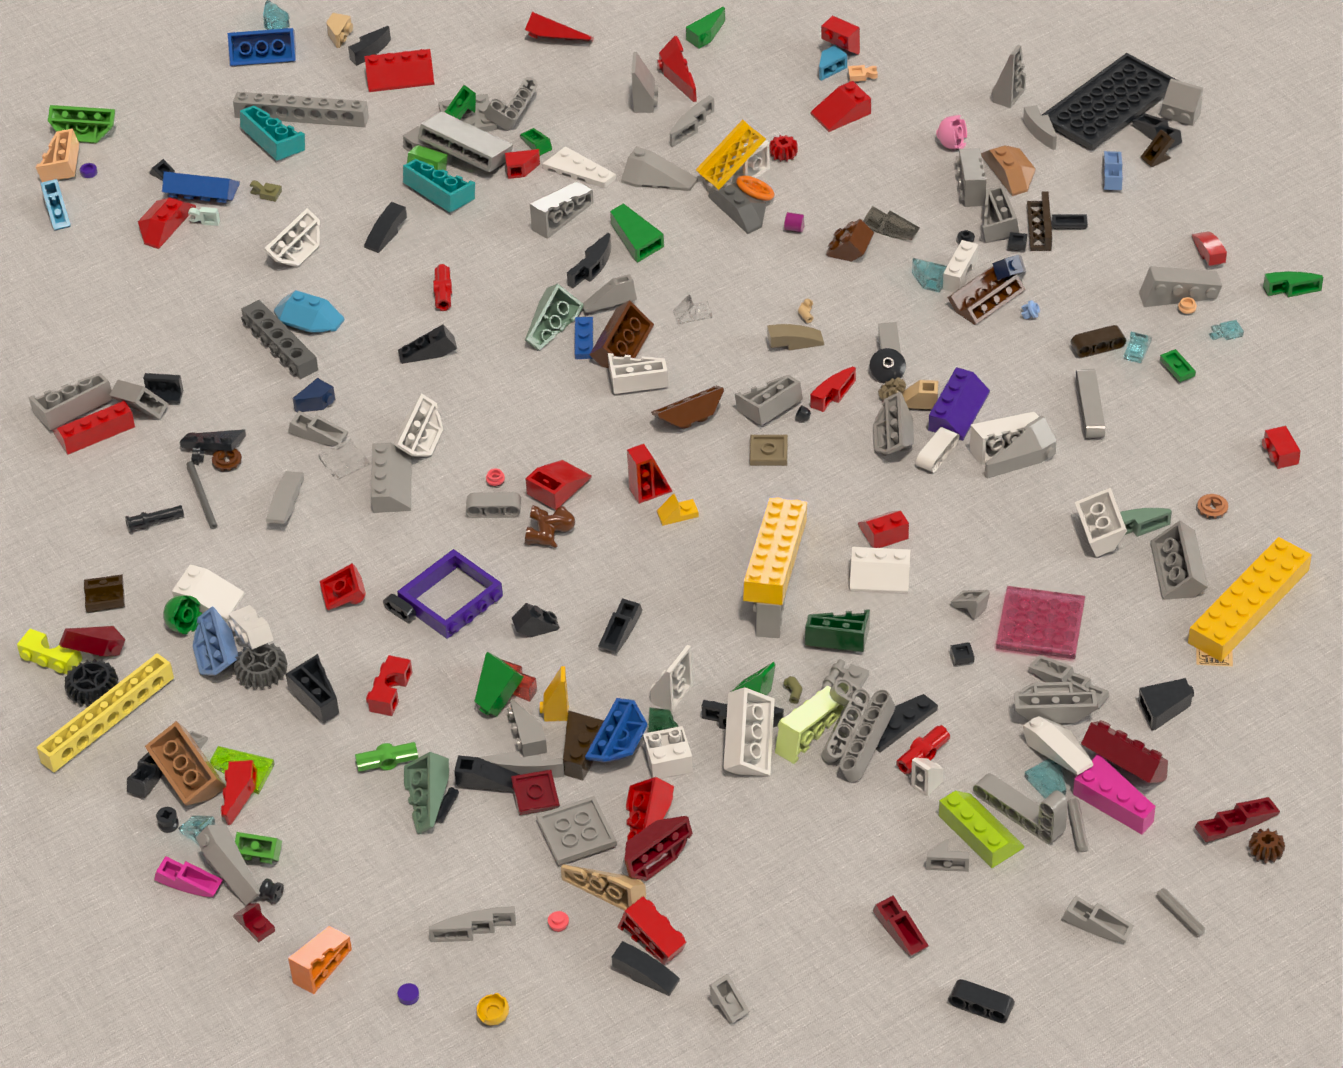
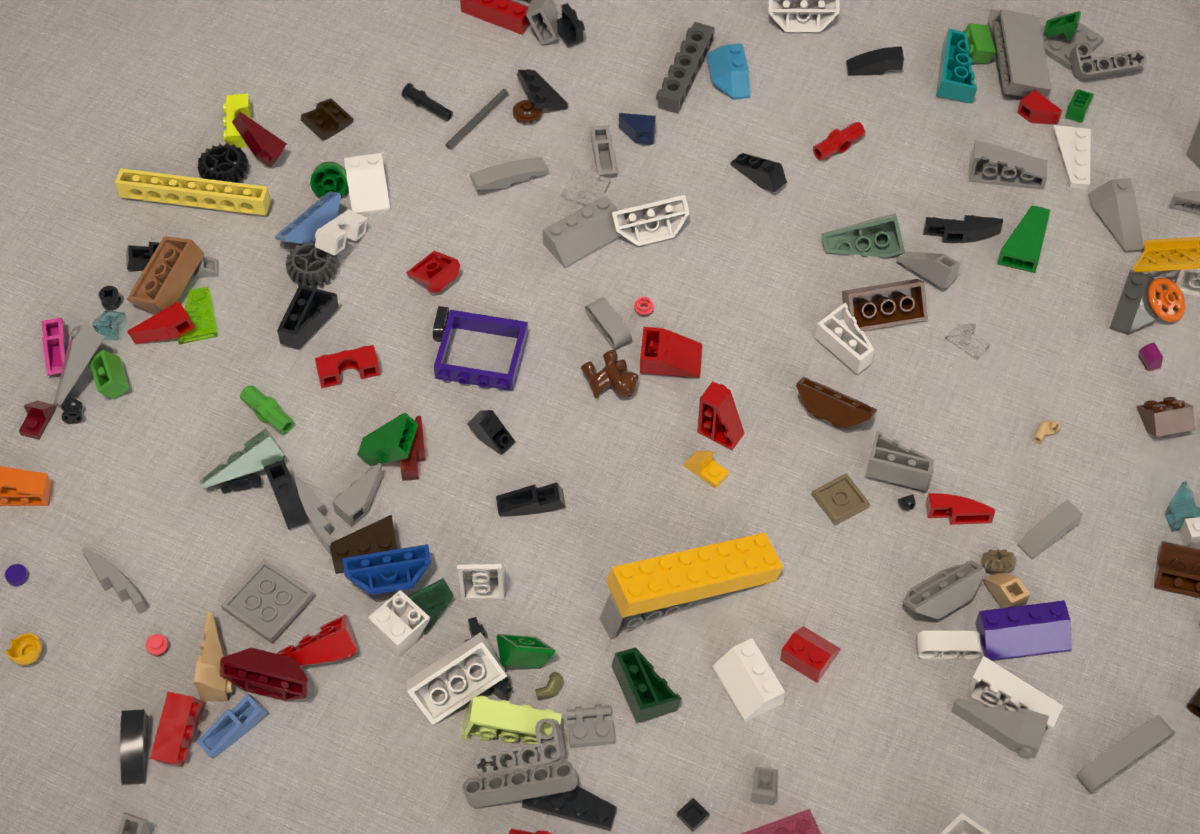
camera: 55 degrees right, 10 degrees up
(197, 455) = (515, 90): black plate -> none
(535, 792) = (292, 543): dark red plate -> none
(555, 698) = (401, 500): yellow slope -> none
(583, 337) = (867, 275): blue plate -> none
(675, 897) = (232, 726): none -> medium blue slope
(794, 336) = (1000, 439): dark tan slope -> none
(883, 372) = (1034, 546): black dish -> none

